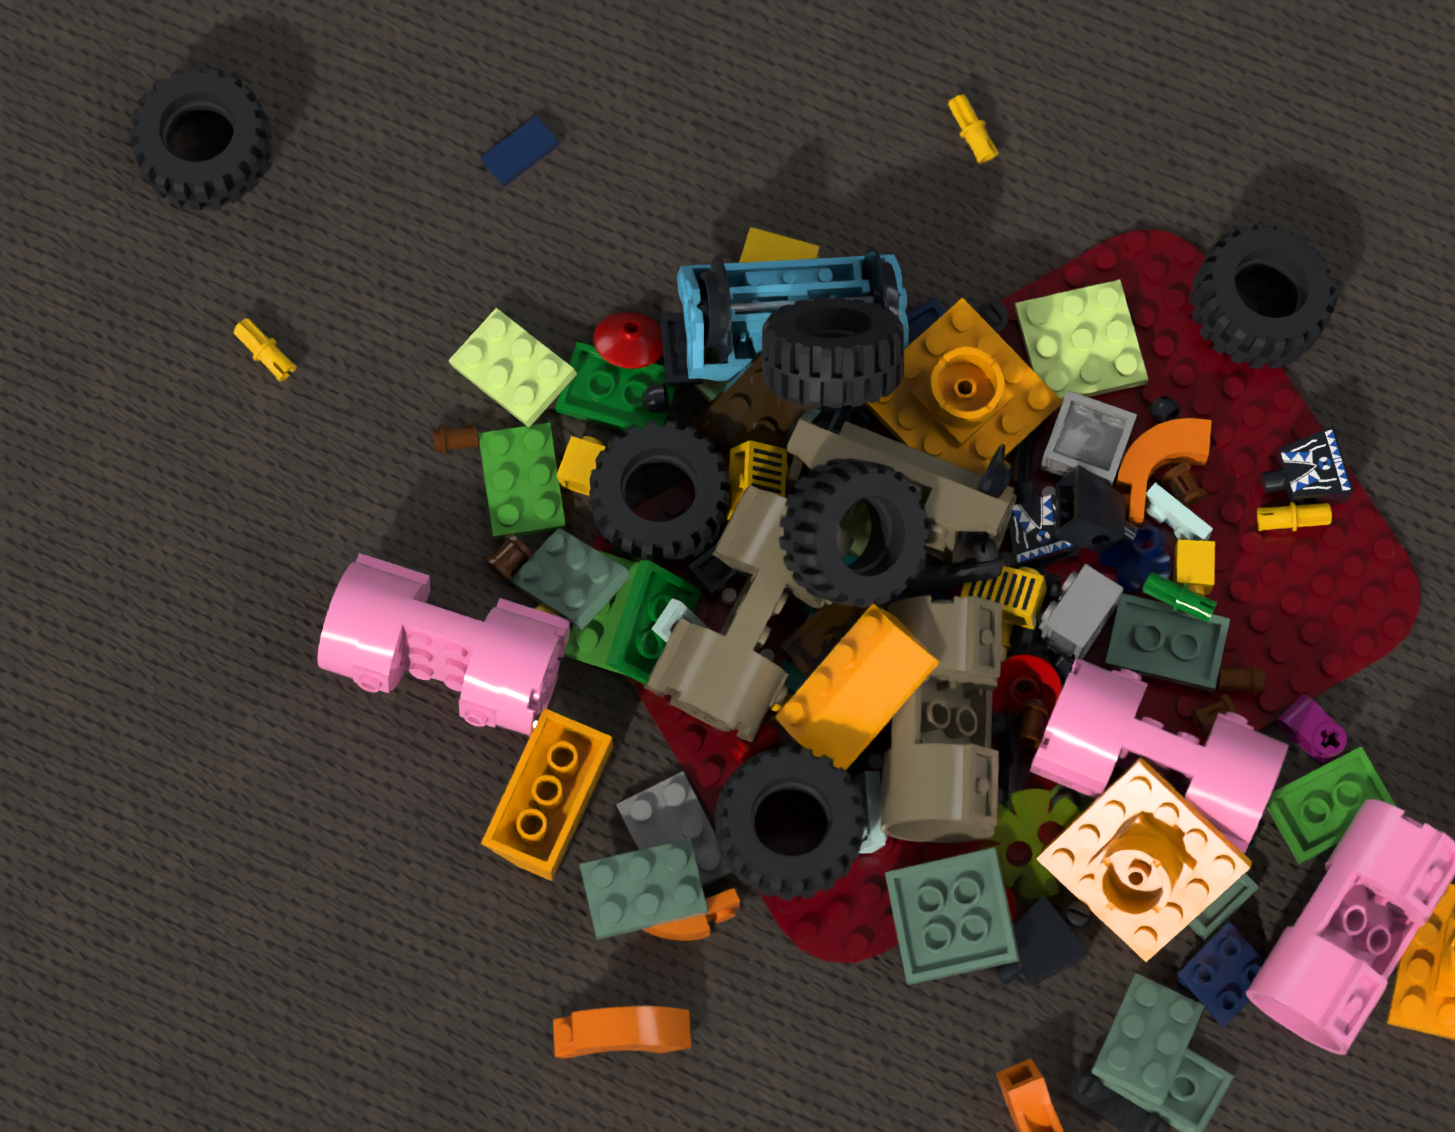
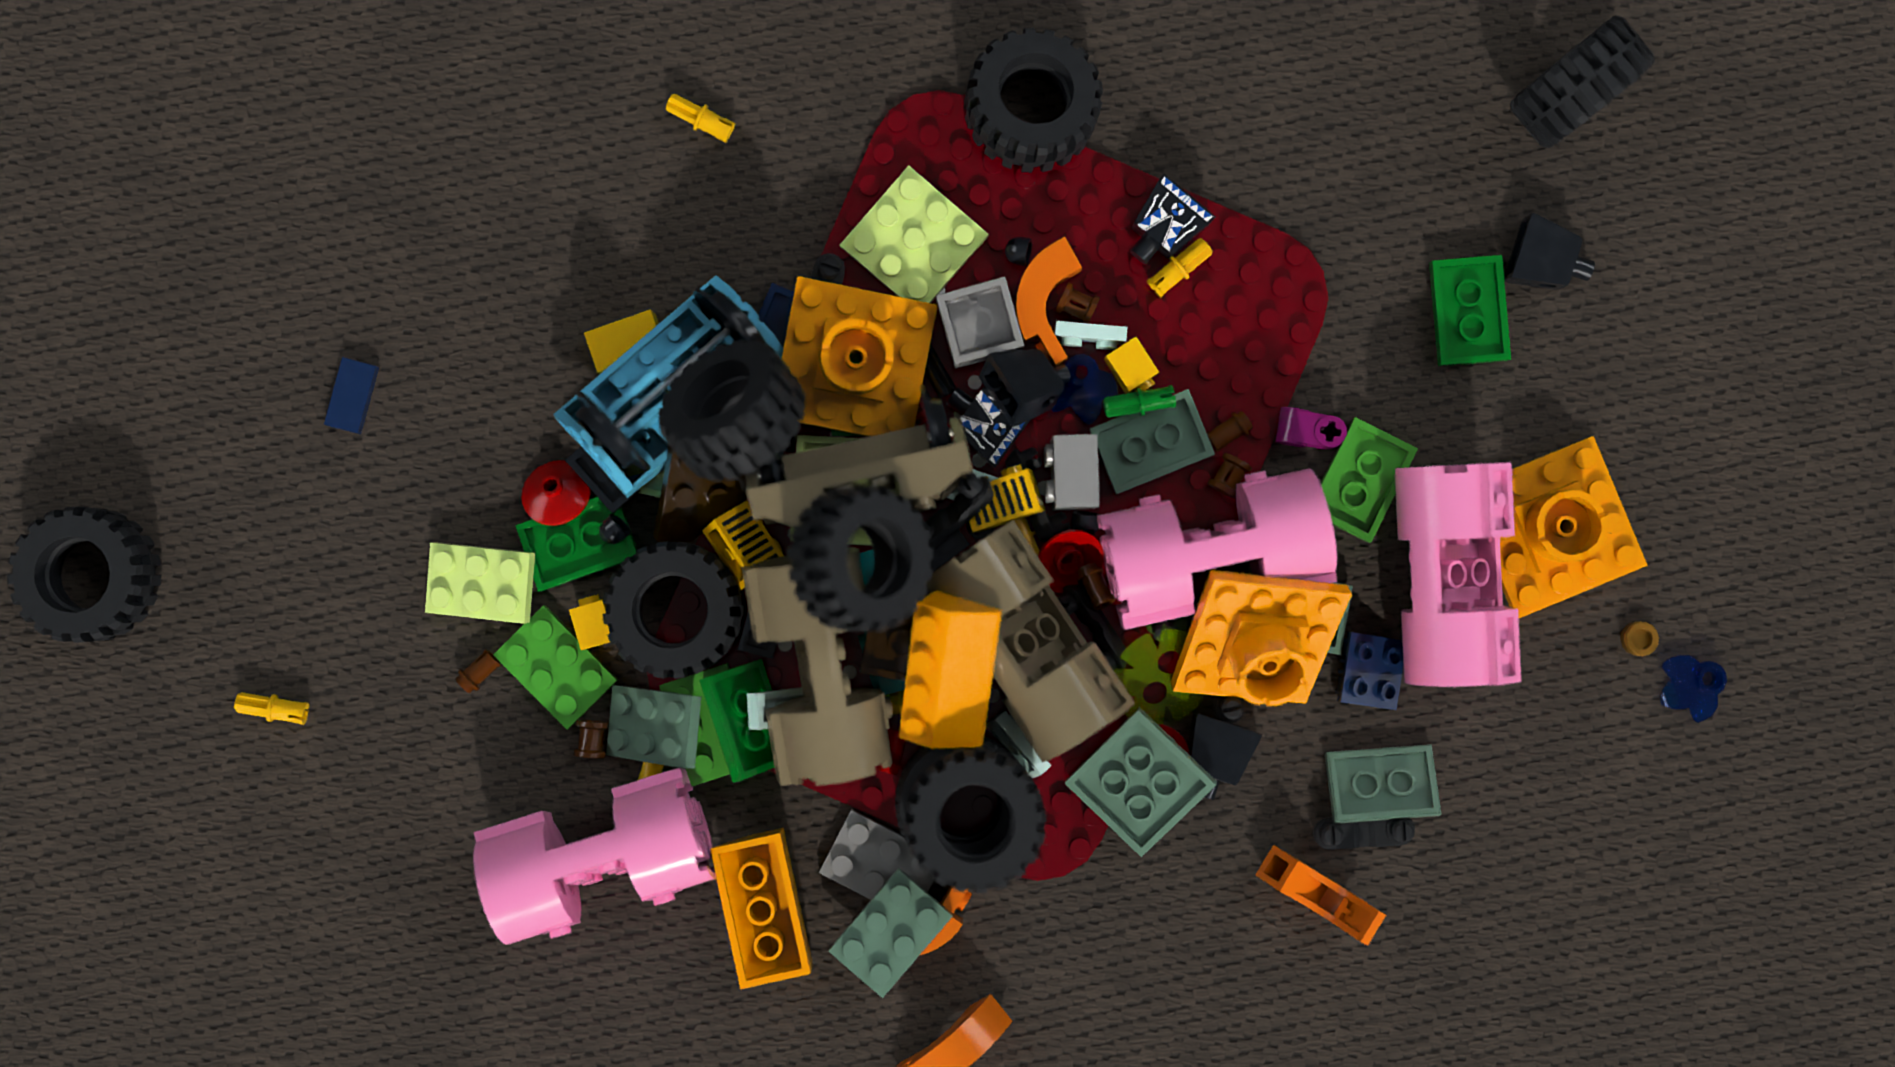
camera: 40 degrees left, 15 degrees up
(1148, 1039) = (1351, 766): sand green plate -> none

